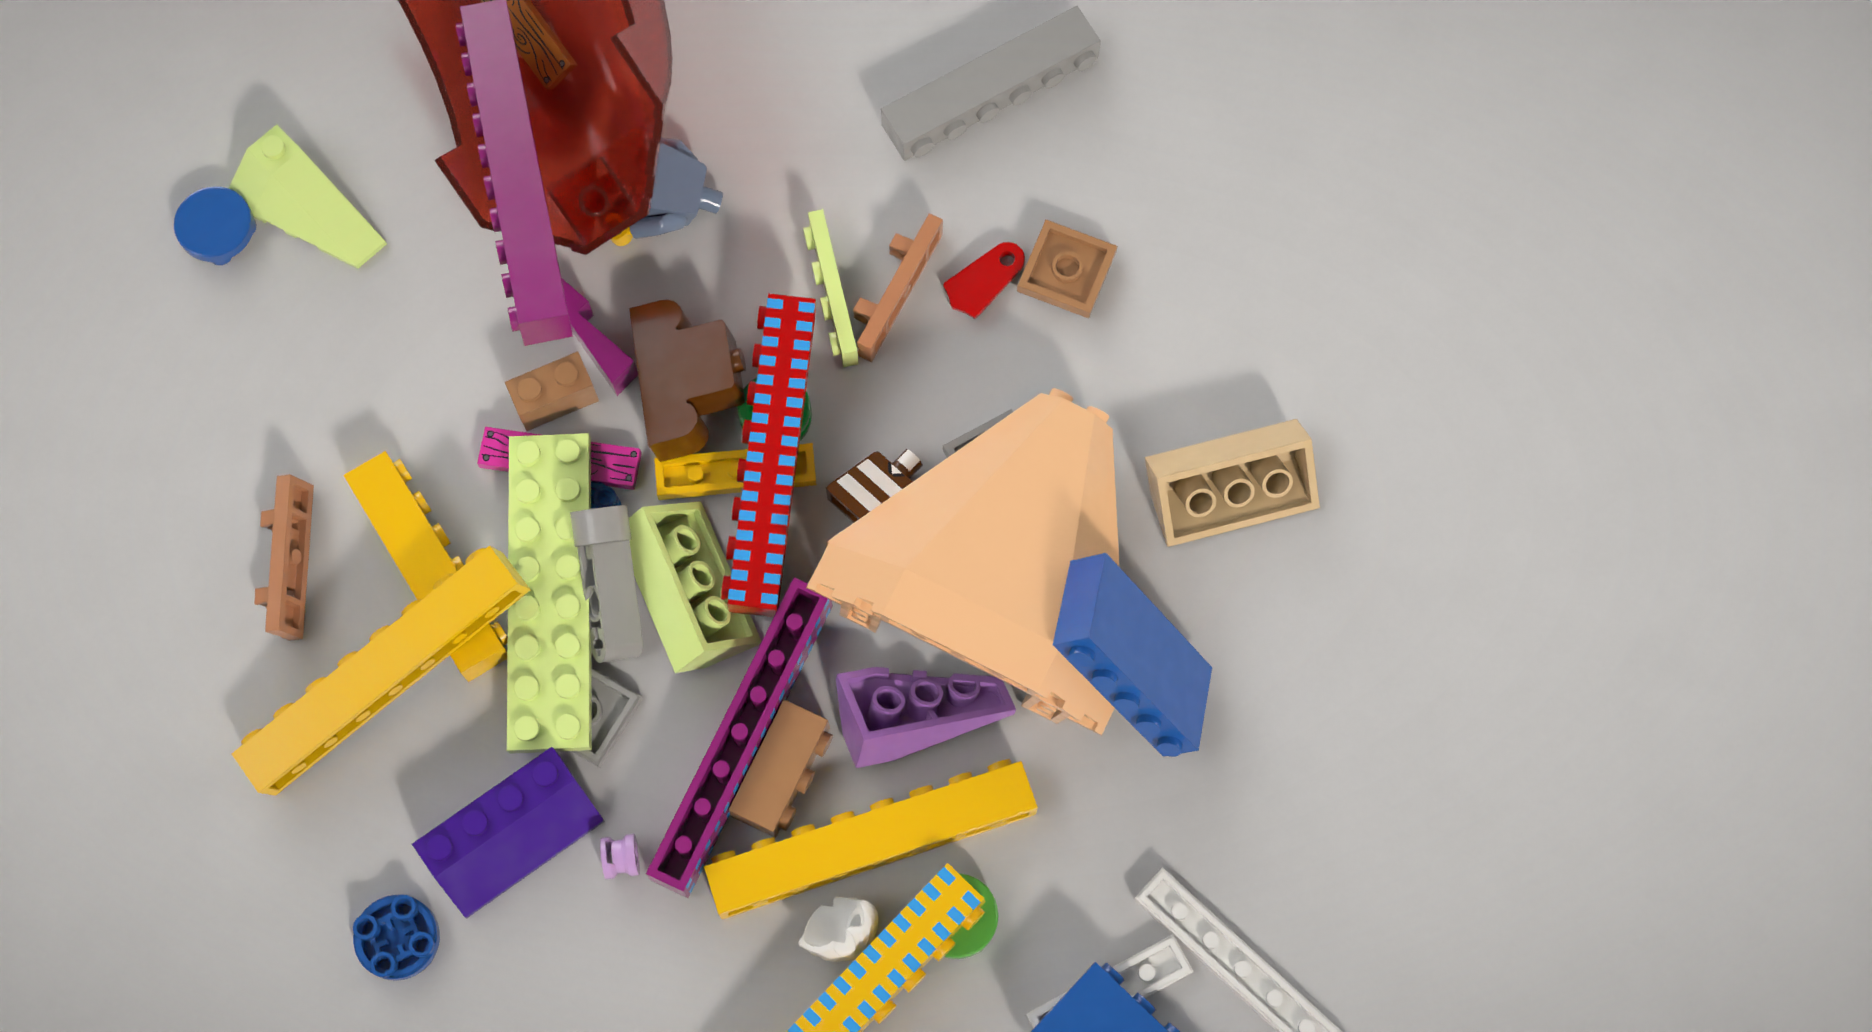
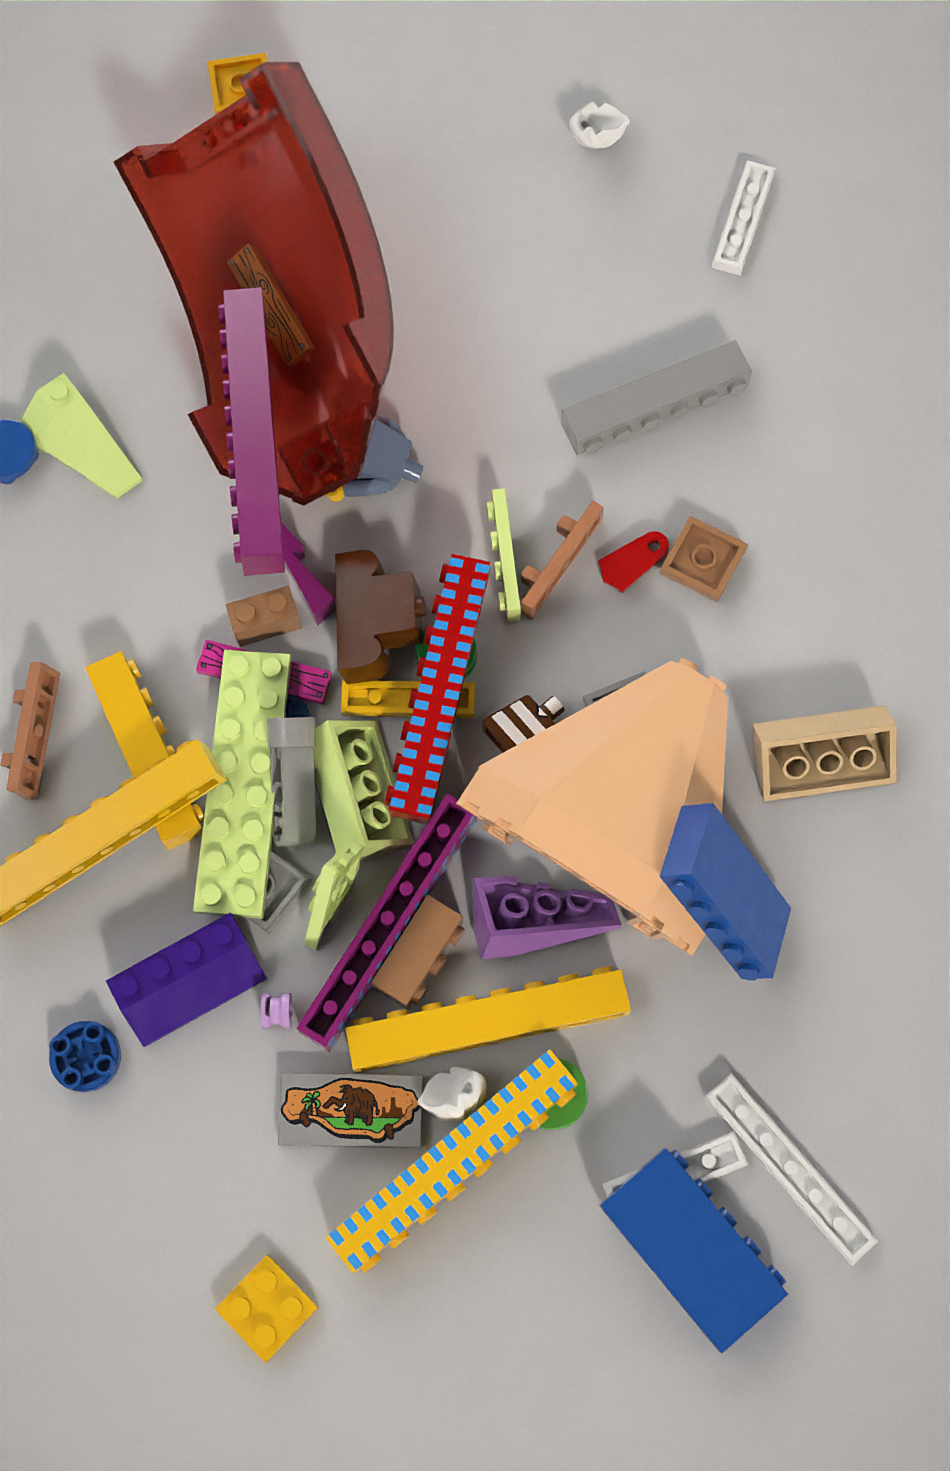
camera: 10 degrees right, 0 degrees up
(670, 707) = (332, 890): none -> yellowish green wing
(720, 963) = (350, 1110): none -> tile

